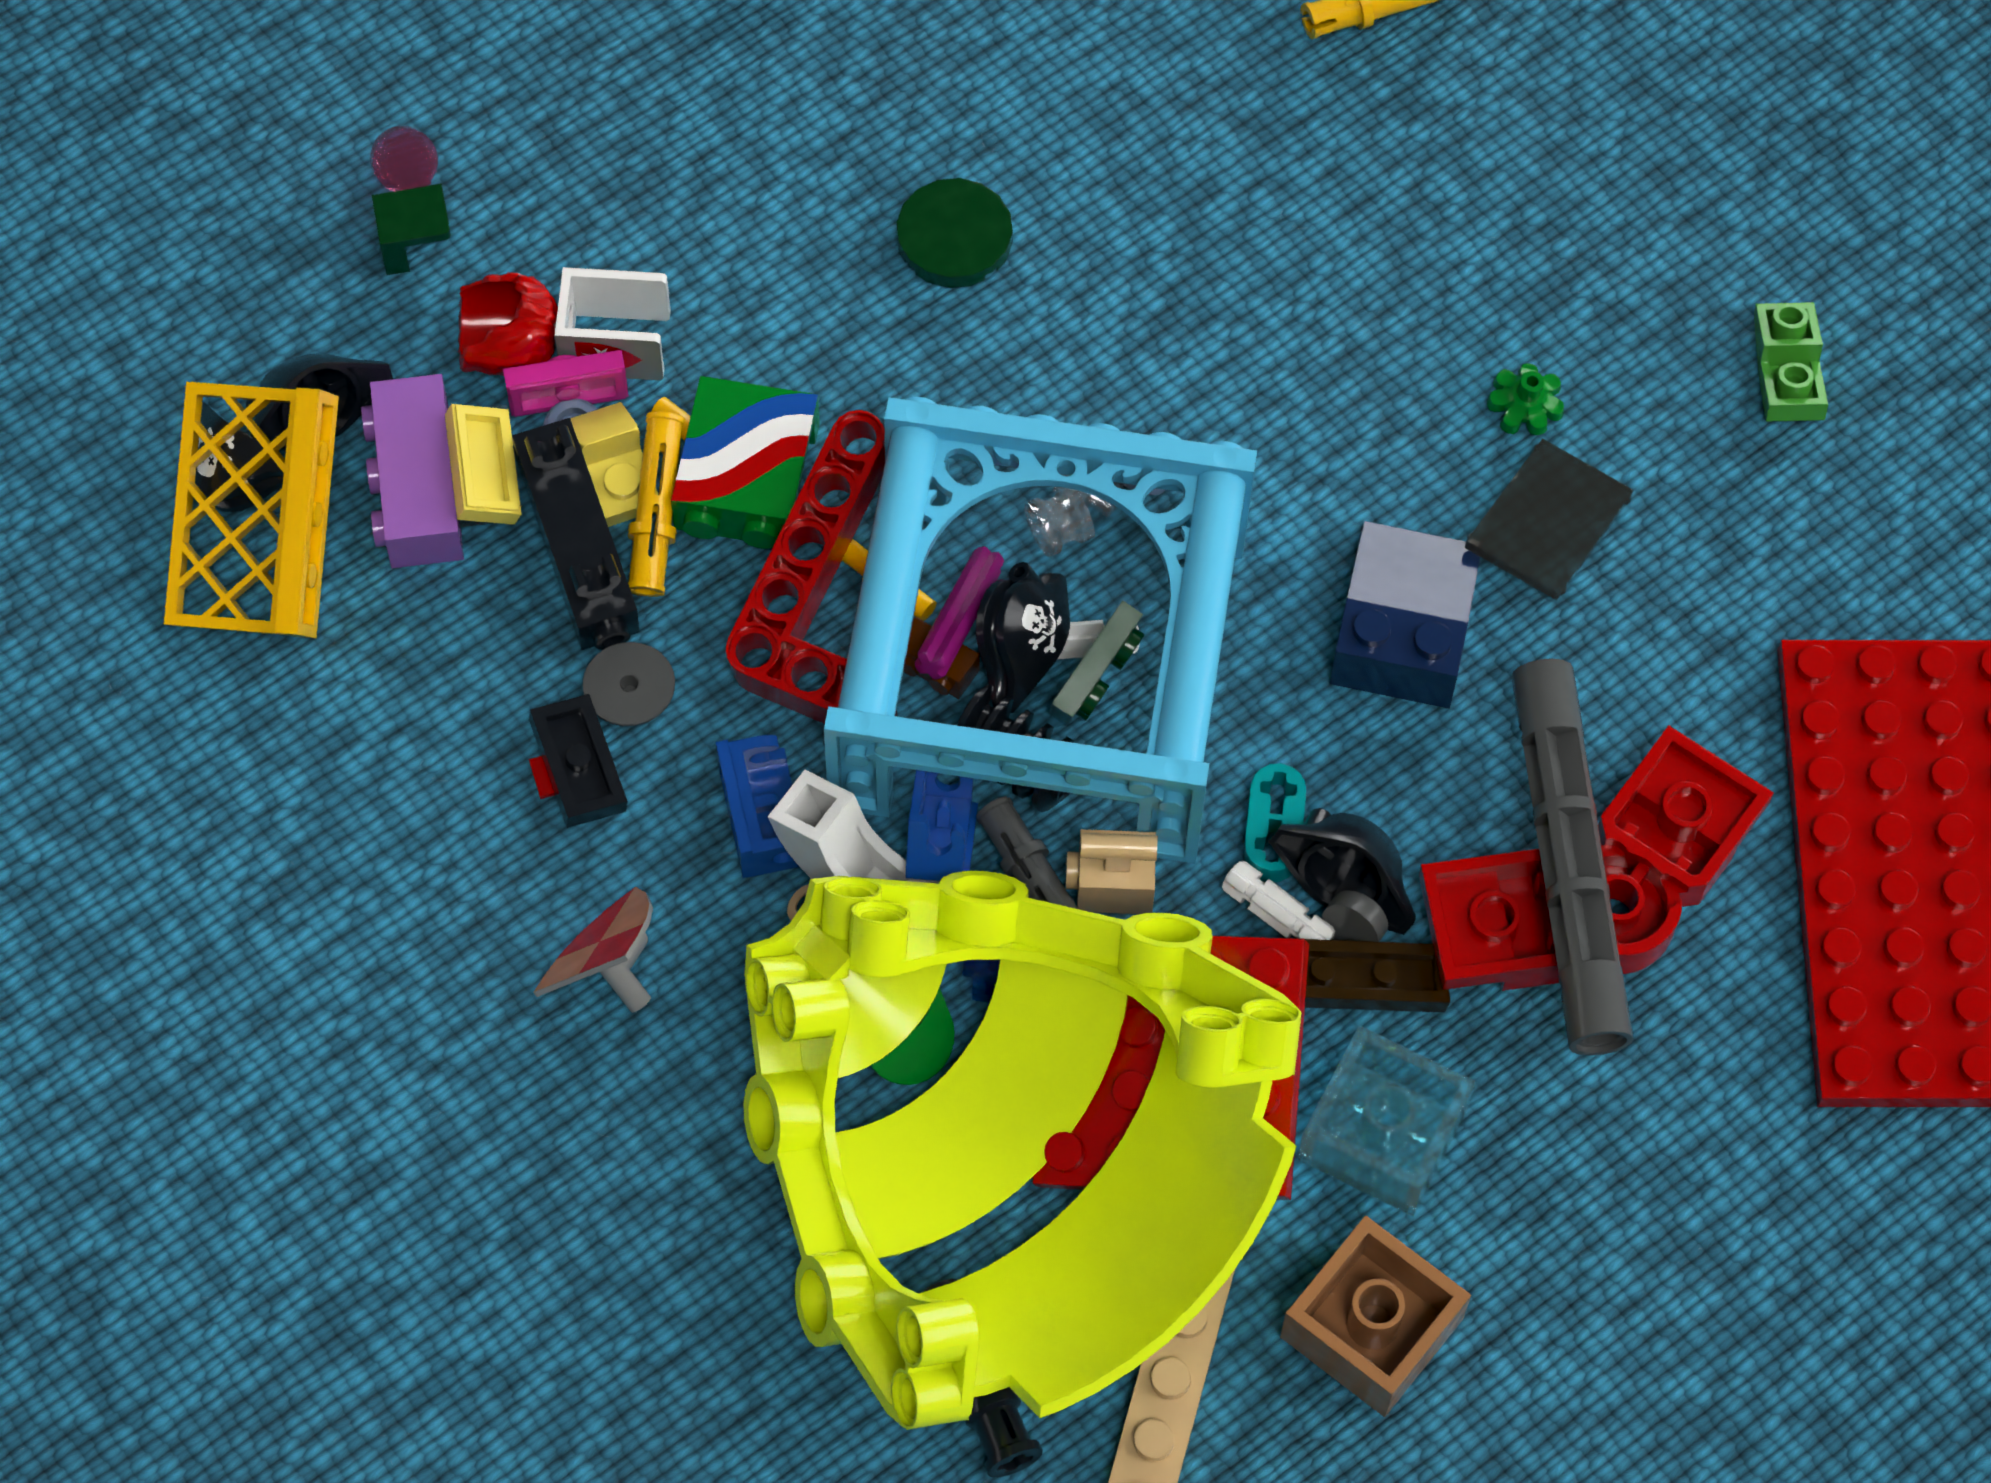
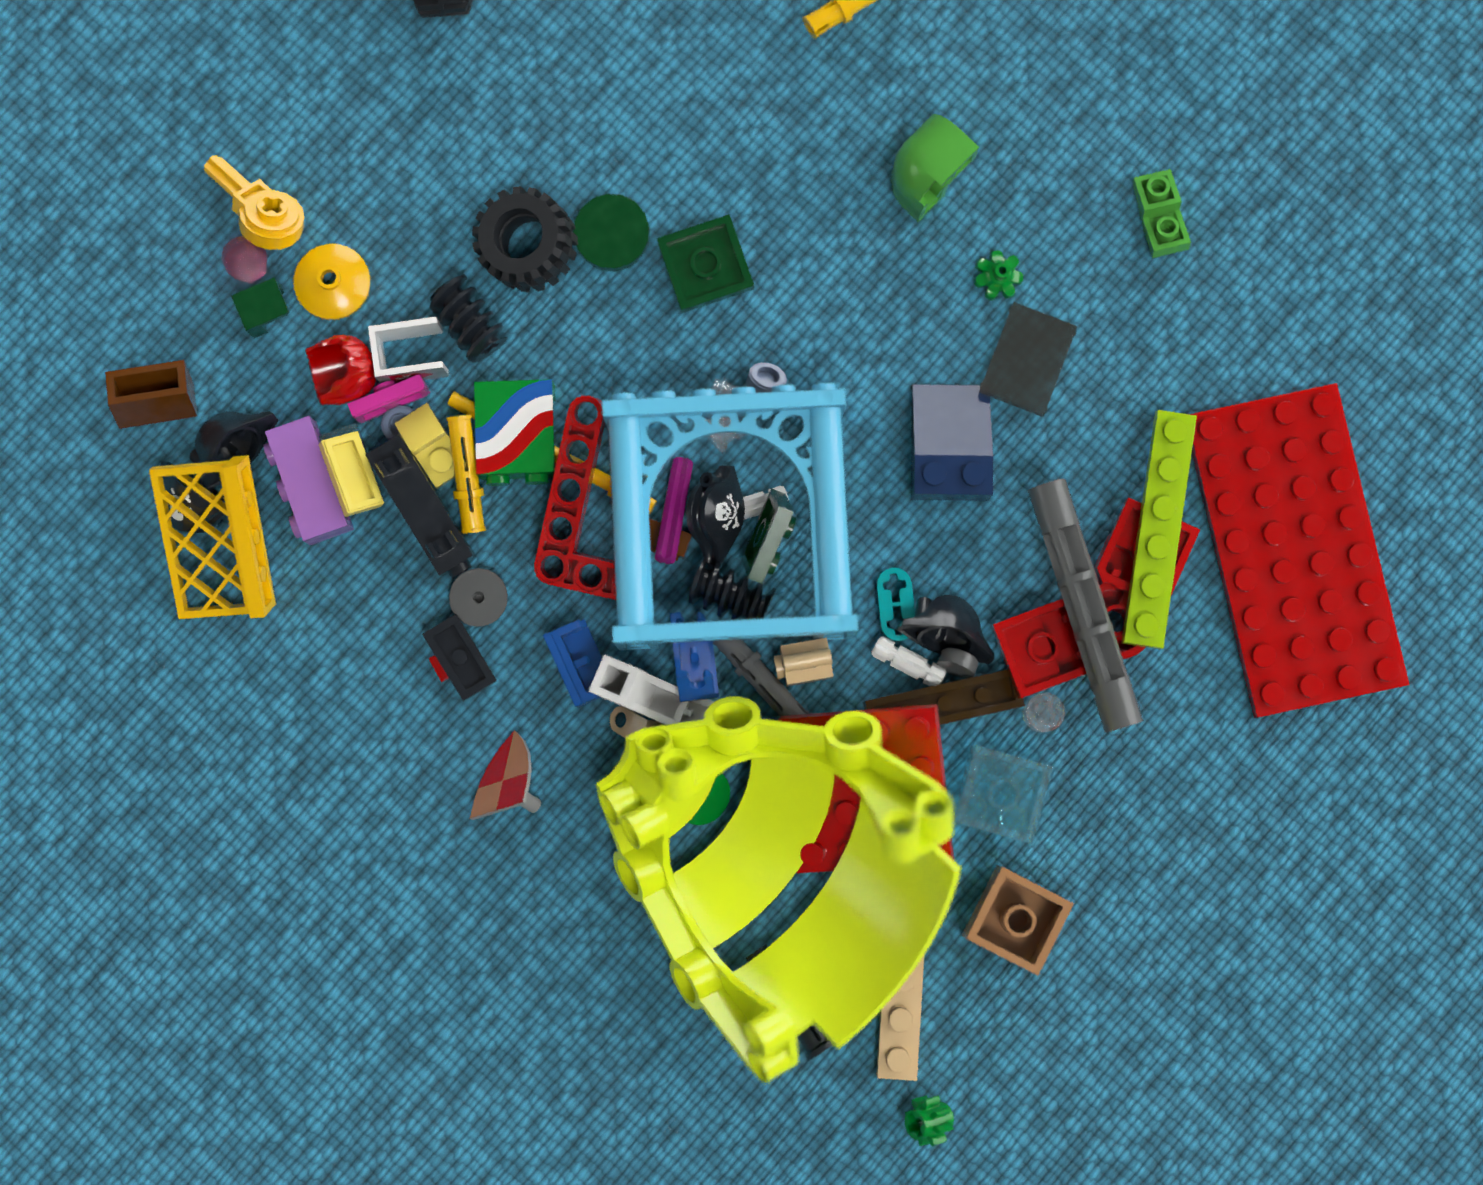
camera: 10 degrees left, 20 degrees up
(215, 304) = (151, 394): none -> reddish brown piece
(445, 102) = (265, 215): none -> yellow piece
(528, 240) = (344, 294): none -> yellow dish
(713, 299) = (465, 319): none -> black piece
(817, 170) = (504, 218): none -> black tyre
(1085, 296) = (705, 263): none -> dark green plate
(1446, 218) = (929, 164): none -> bright green brick
(1482, 1008) = (1049, 709): none -> clear wheel
(1707, 778) = (1159, 529): none -> lime plate

